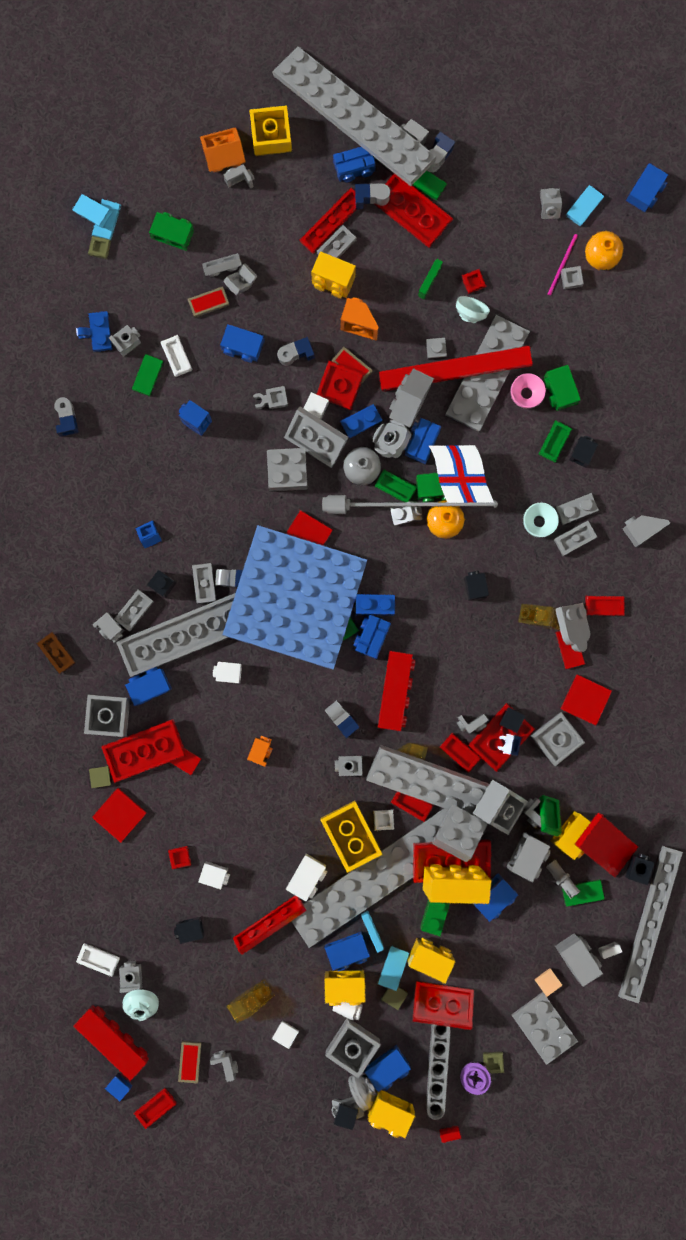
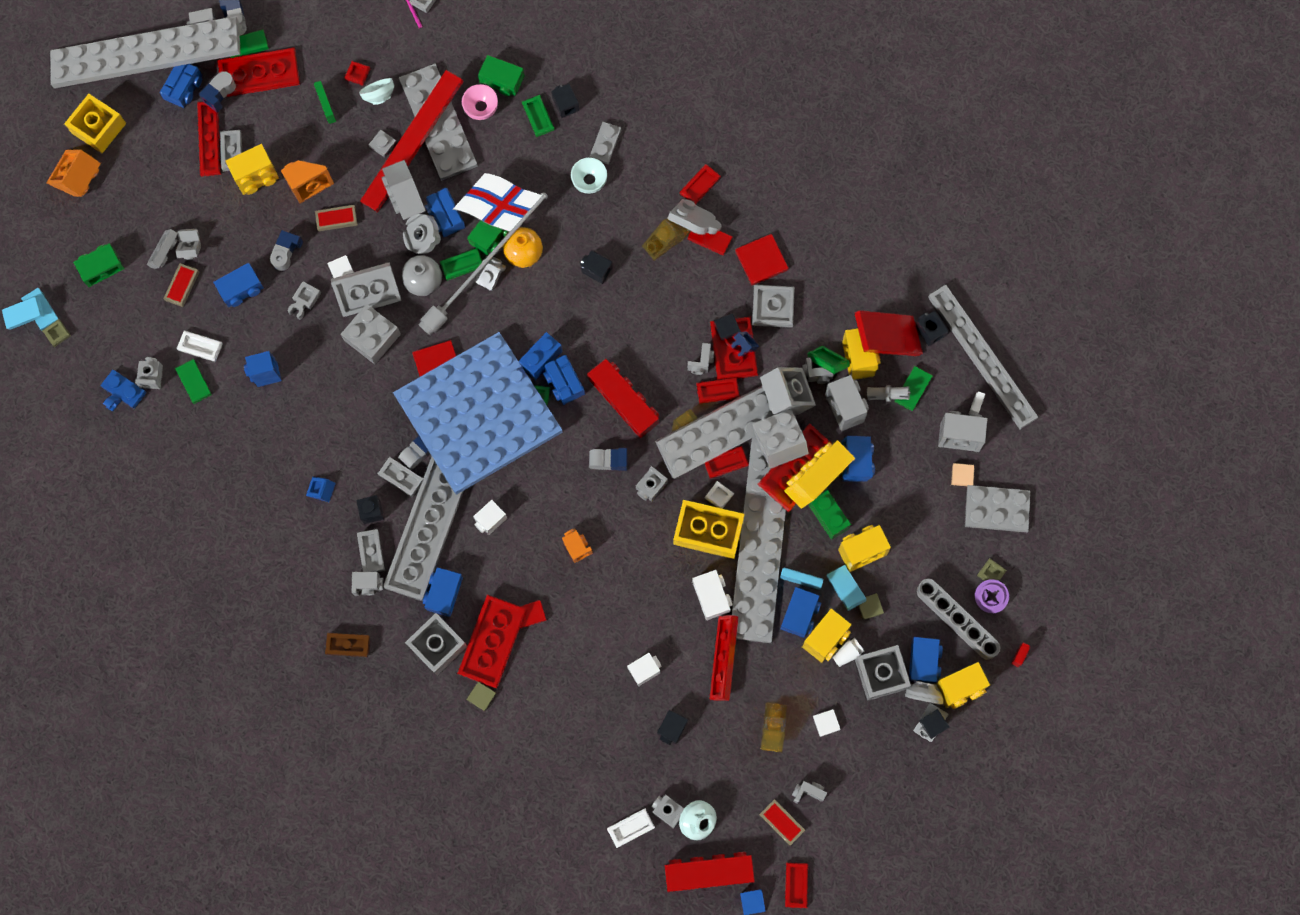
camera: 45 degrees left, 10 degrees down
(66, 416) = (162, 470): leg -> none
(119, 815) = (526, 707): red tile -> none
(179, 857) = (605, 687): red tile -> none
(238, 174) = (103, 179): light grey bracket -> none
(340, 385) = (342, 238): red tile -> none
(361, 421) = (386, 246): blue plate -> none
(443, 1005) = (910, 571): red tile -> none
(575, 538) = (627, 162): light grey plate -> none
(643, 528) = (665, 105): light grey slope -> none

